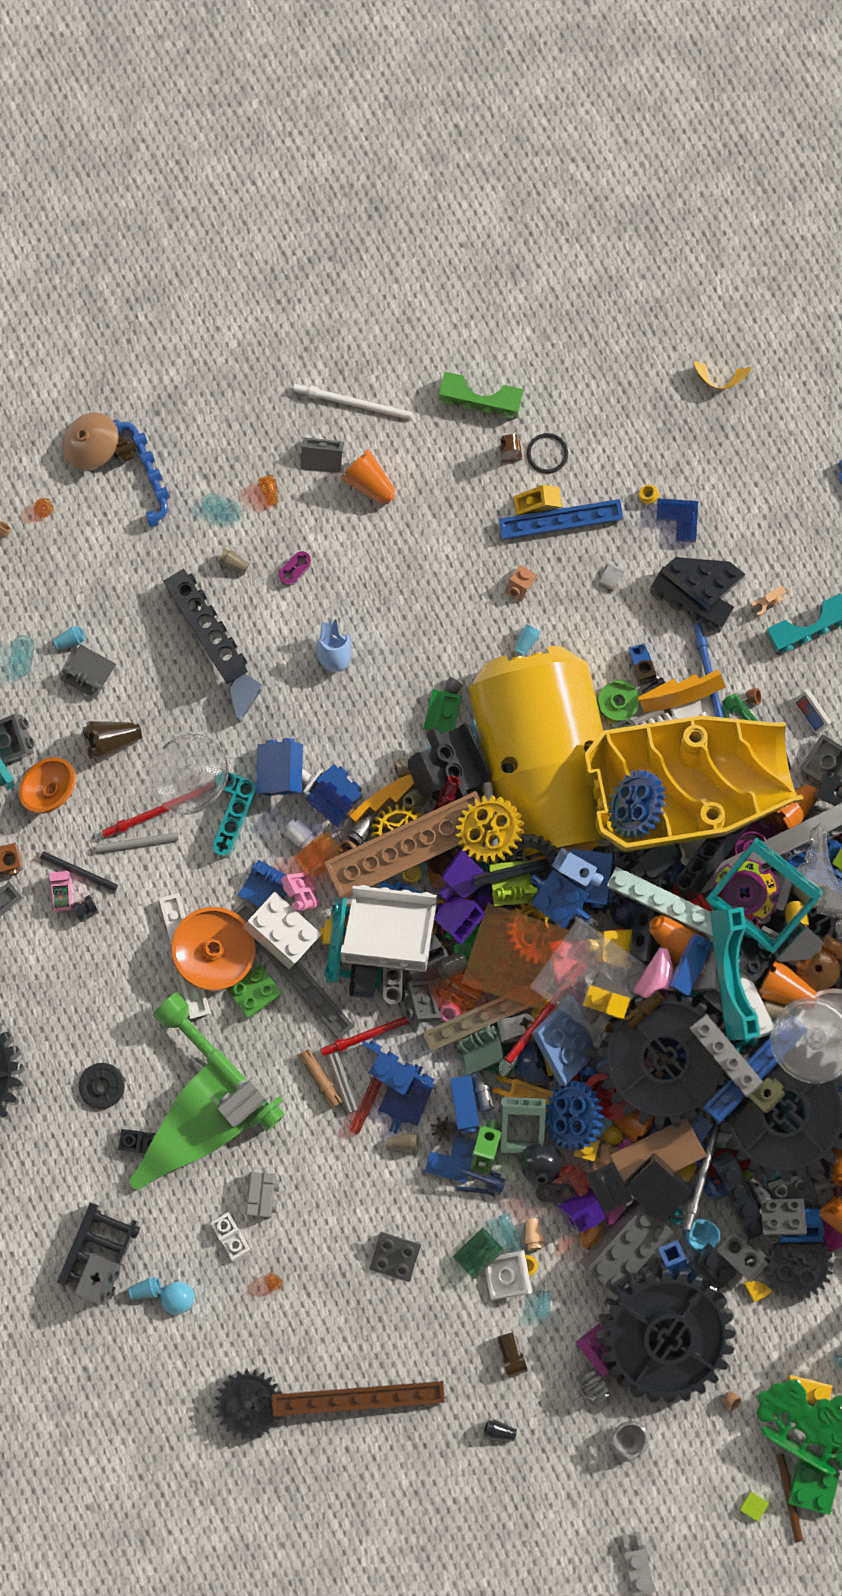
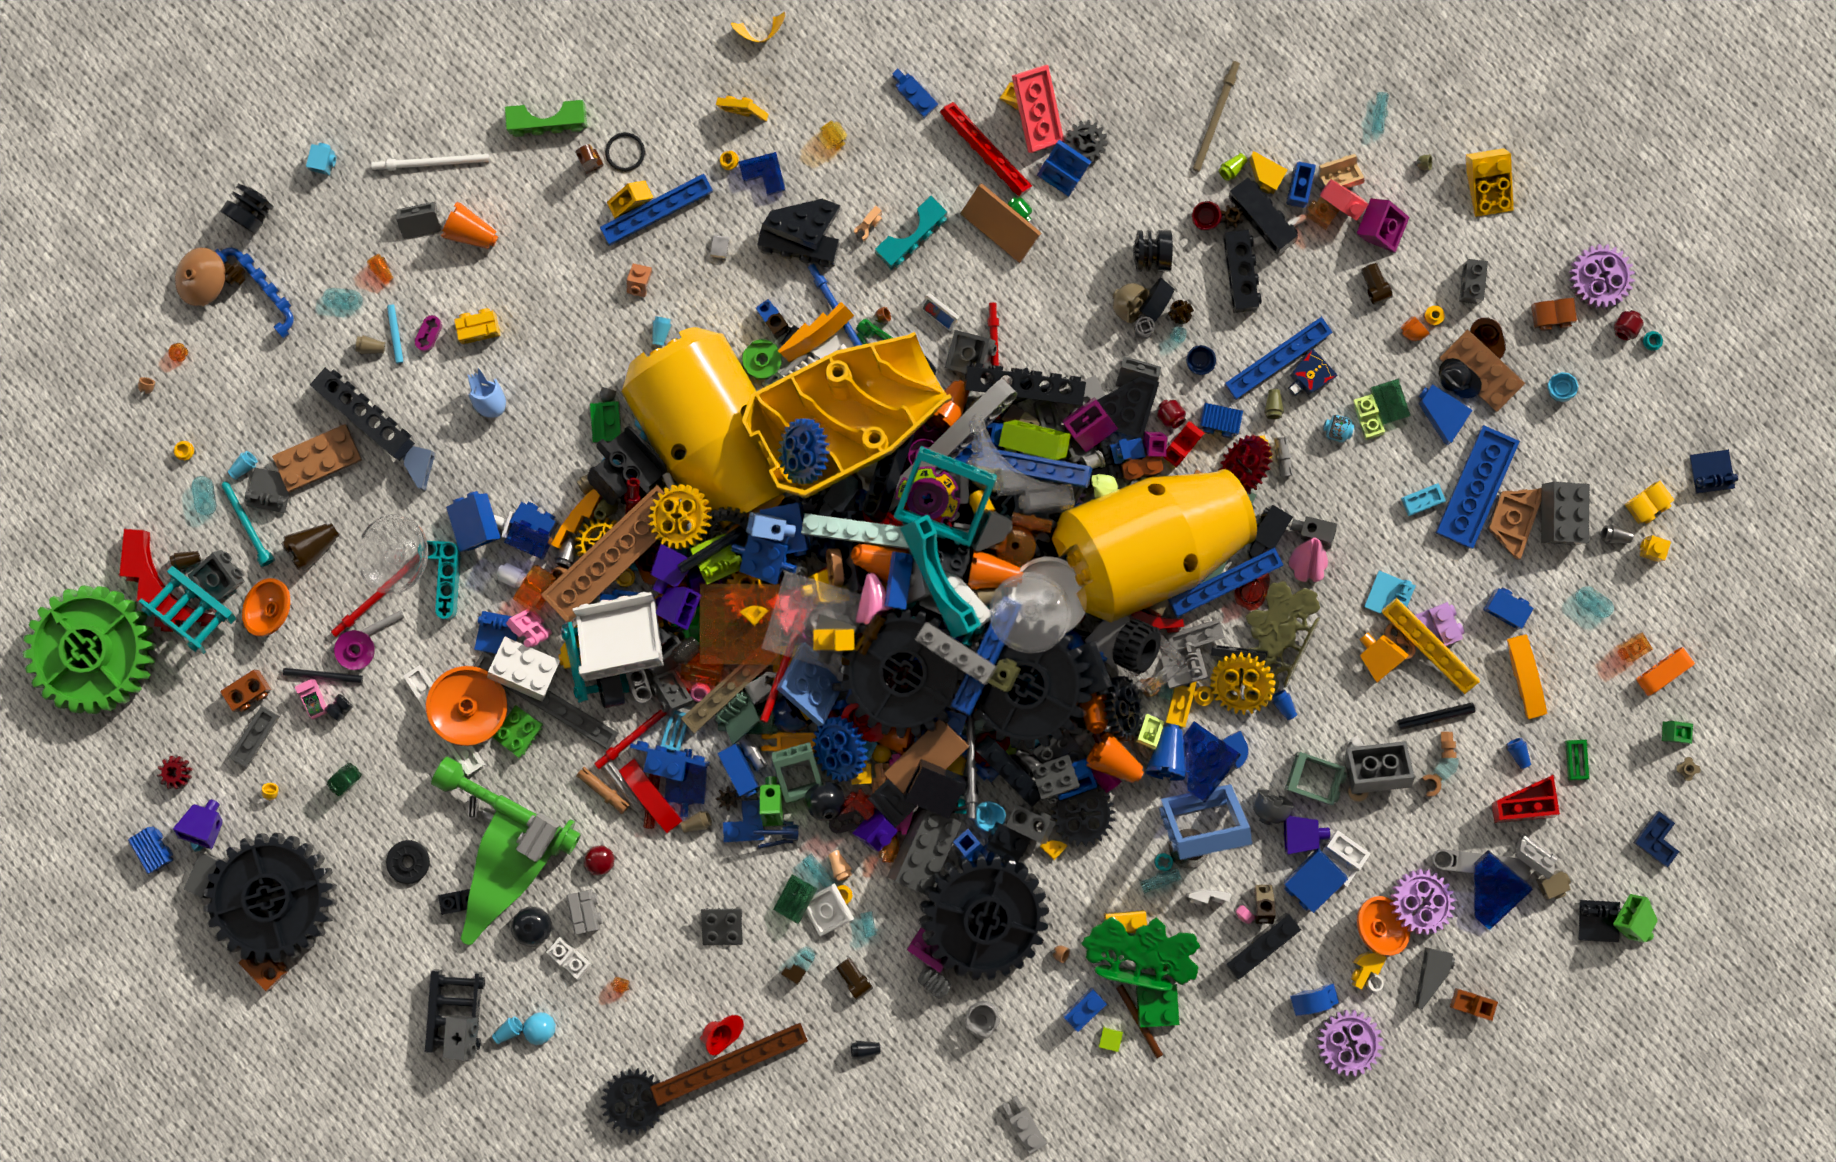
camera: 20 degrees left, 5 degrees up
(17, 605) = (184, 450): none -> yellow plate
(60, 735) = (264, 557): none -> teal piece
(67, 981) = (344, 779): none -> clear green gear
(109, 851) = (345, 654): none -> magenta dish
(145, 655) = (317, 458): none -> medium nougat plate
(158, 390) = (247, 208): none -> black wheel
(185, 1052) = (473, 809): none -> flat silver piece
(203, 1192) = (531, 926): none -> black cylinder
(246, 364) = (321, 159): none -> medium azure brick
(262, 558) = (395, 334): none -> medium azure bar
(292, 1148) = (599, 860): none -> dark red hair
(346, 577) = (477, 326): none -> yellow brick
(359, 1365) = (721, 1034): none -> red piece
(366, 1100) = (650, 796): none -> red slope
(404, 1039) = (666, 733): none -> medium azure tile
(469, 1316) = (804, 960): none -> leg
(532, 950) = (754, 613): none -> yellow tile
(628, 930) = (834, 567): none -> medium nougat beam
(678, 446) = (741, 107): none -> yellow wing
(737, 1466) = (1084, 1009): none -> blue brick
(760, 502) = (833, 135): none -> clear yellow head

